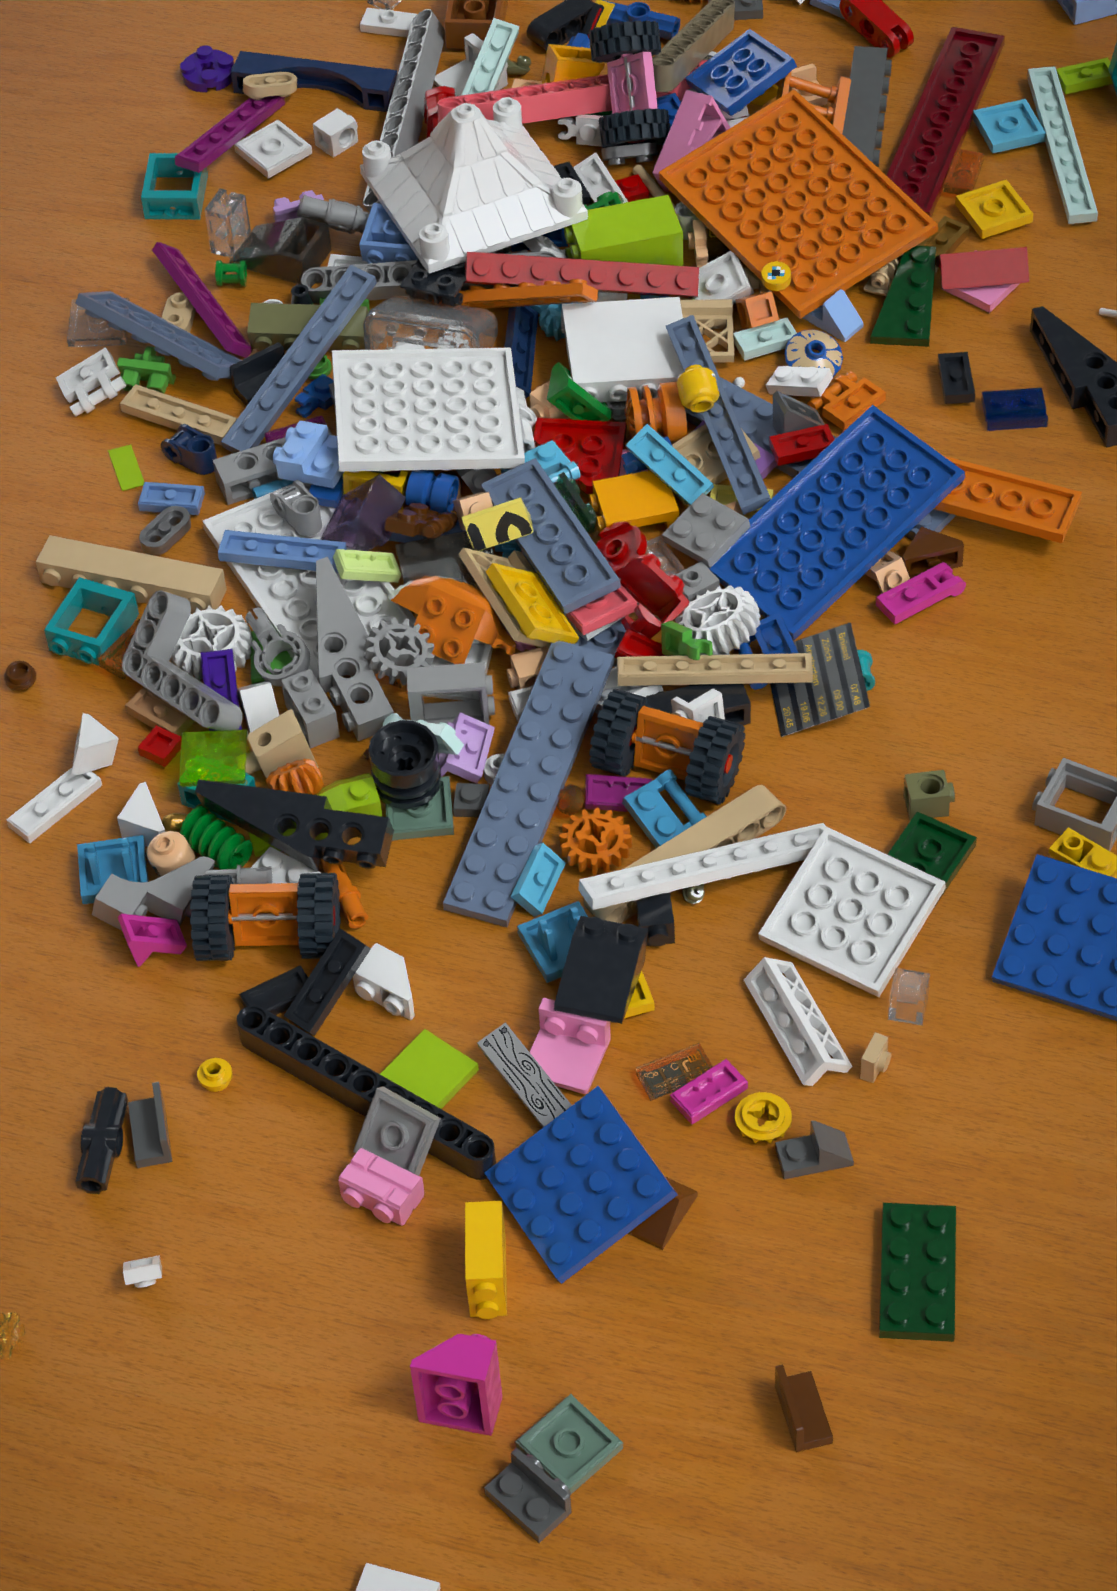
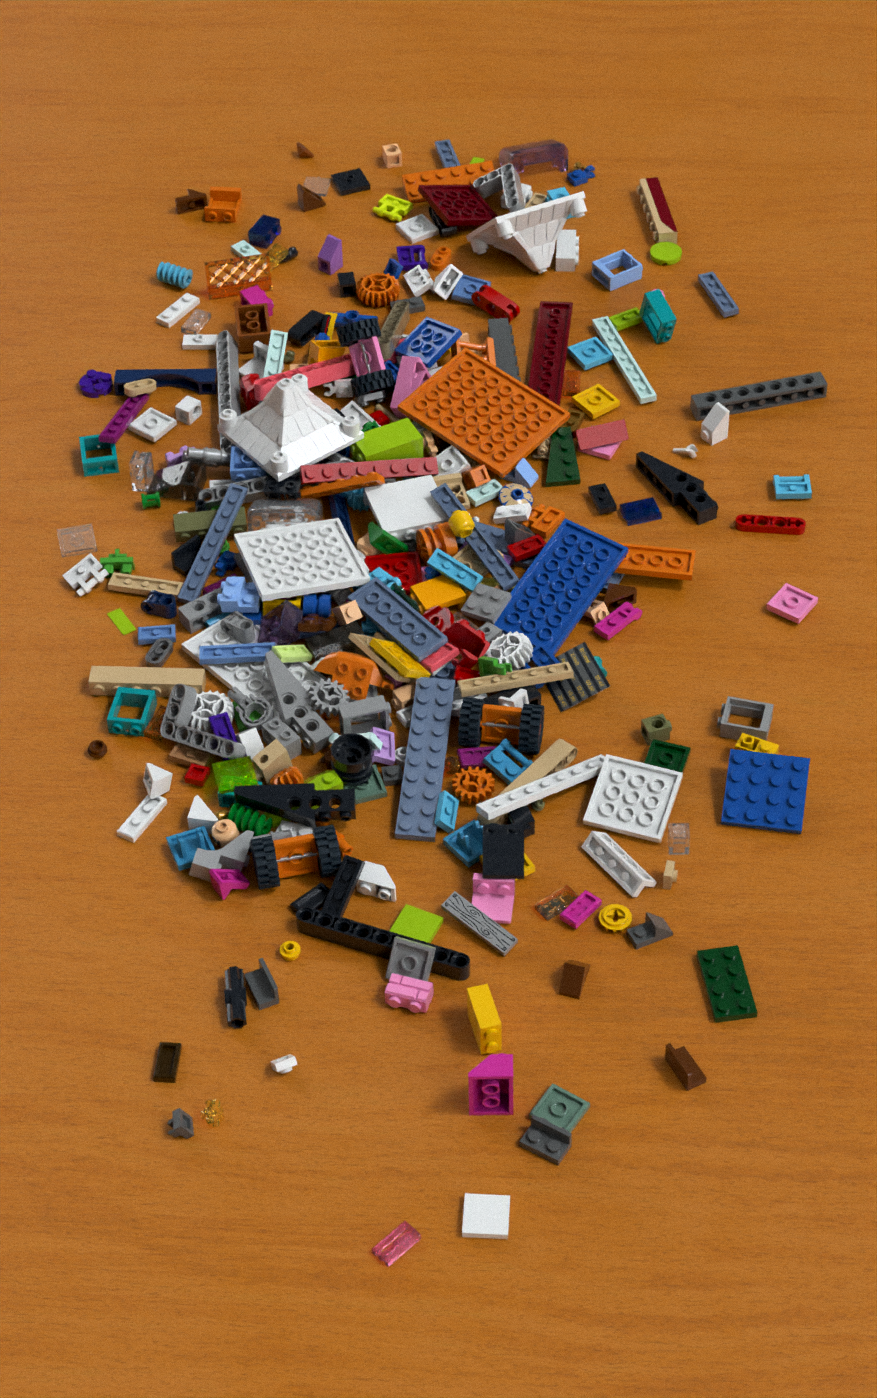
camera: 15 degrees left, 5 degrees down
(162, 334) = (122, 540): sand blue plate -> none
(179, 311) = (125, 530): tan plate -> none
(202, 300) = (138, 518): magenta tile -> none
(498, 524) = (366, 617): light yellow slope -> none
(580, 1184) = (525, 970): blue plate -> none
(776, 276) = (484, 455): yellow tile -> none

